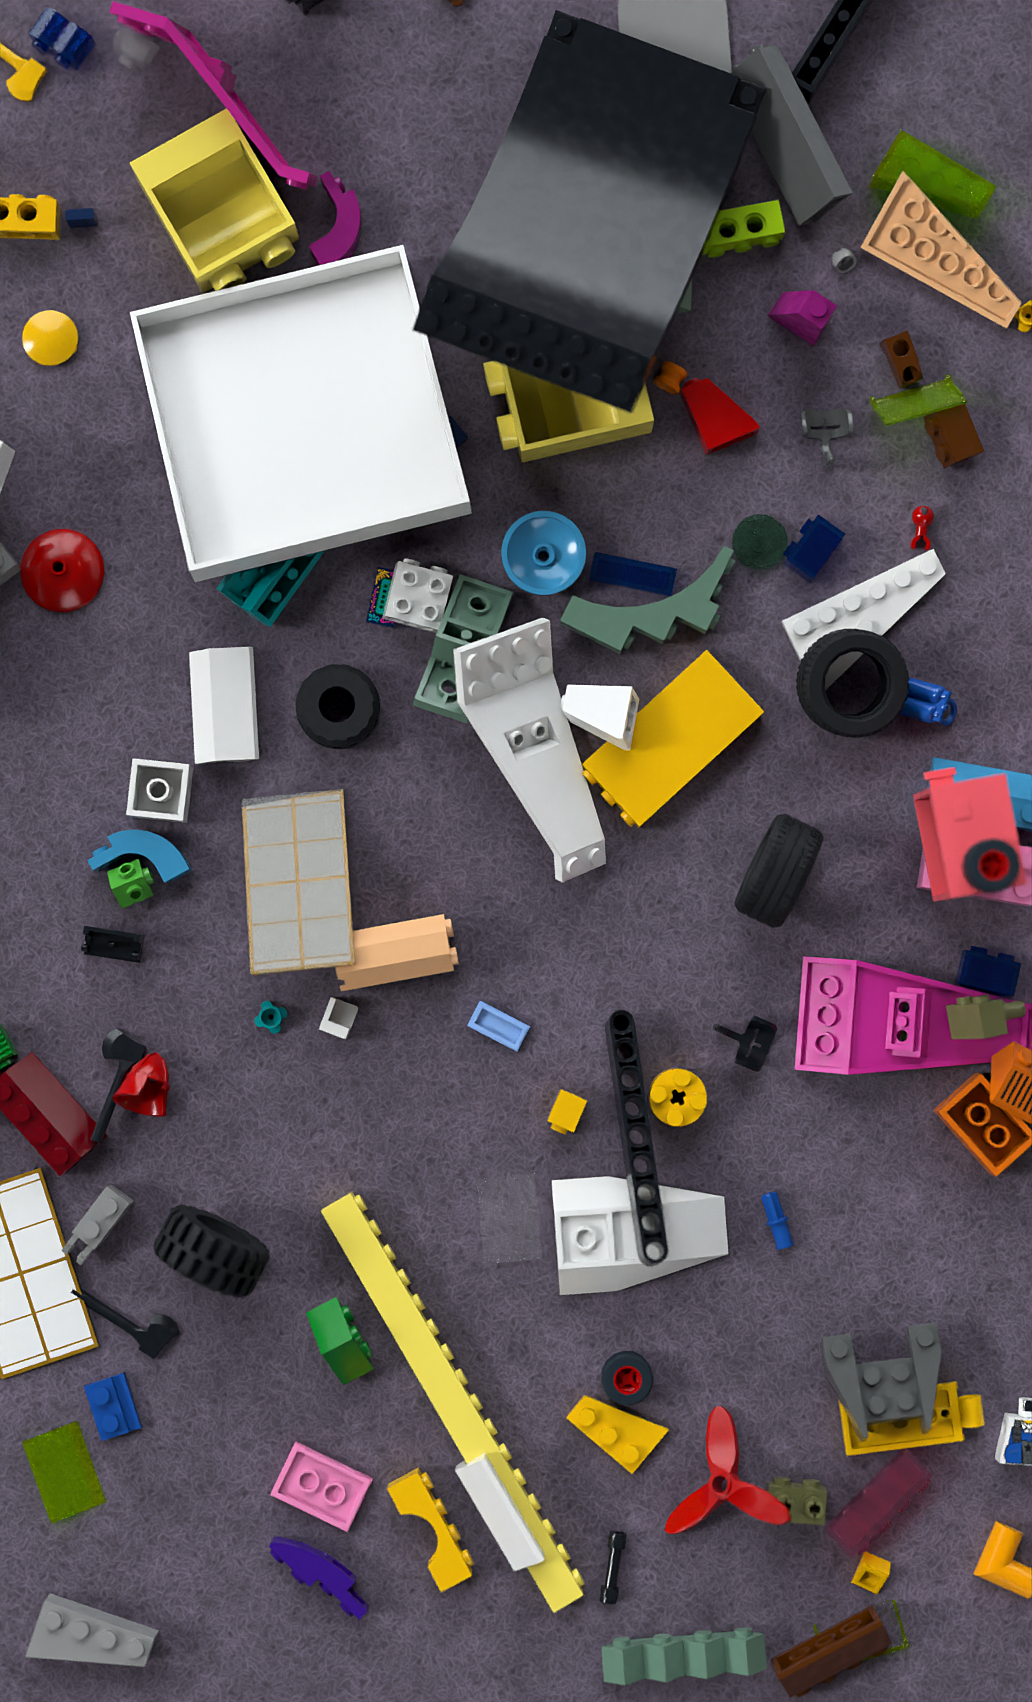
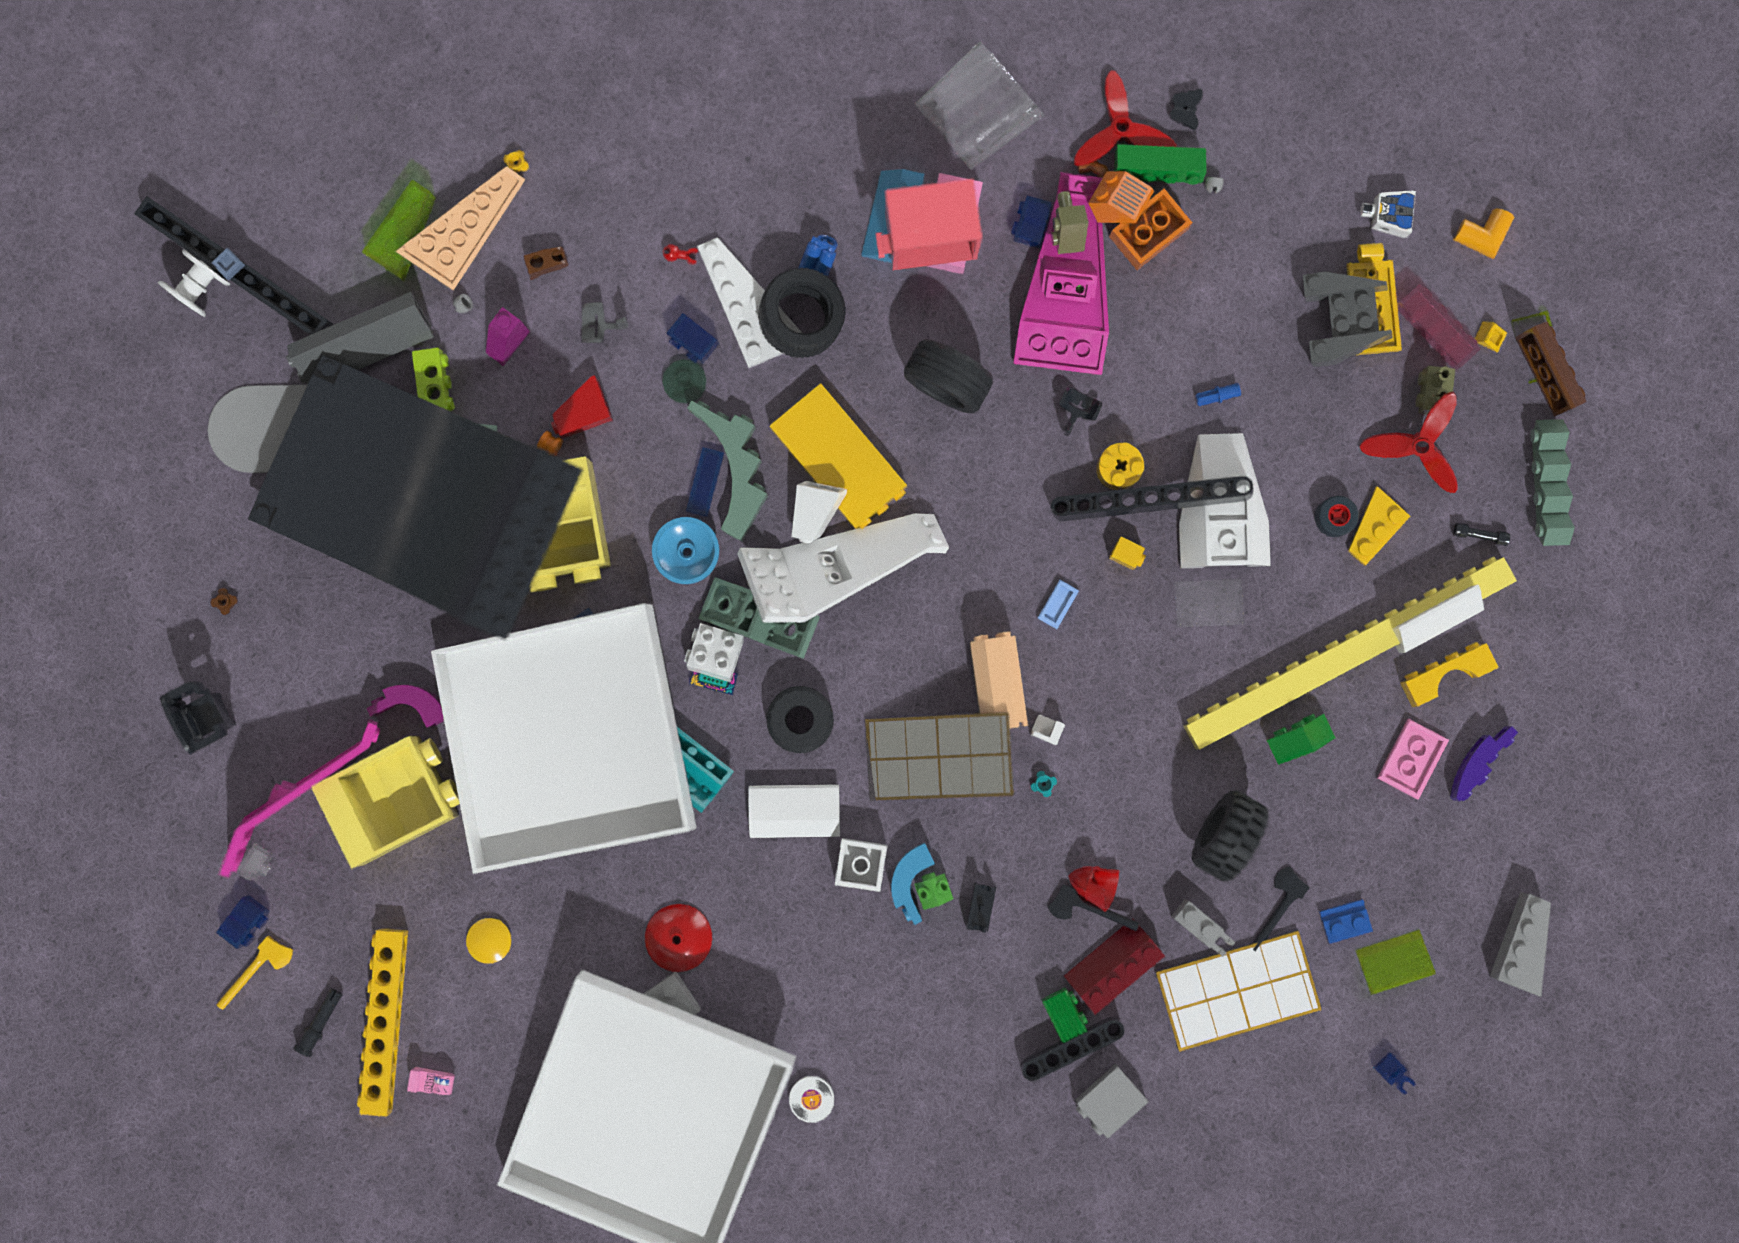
camera: 80 degrees left, 0 degrees up
(81, 217) = (392, 911): dark blue tile -> none
(917, 401) = (580, 251): clear neon green piece -> none
(953, 435) = (607, 225): reddish brown brick -> none
(1001, 865) = (964, 198): black wheel -> none

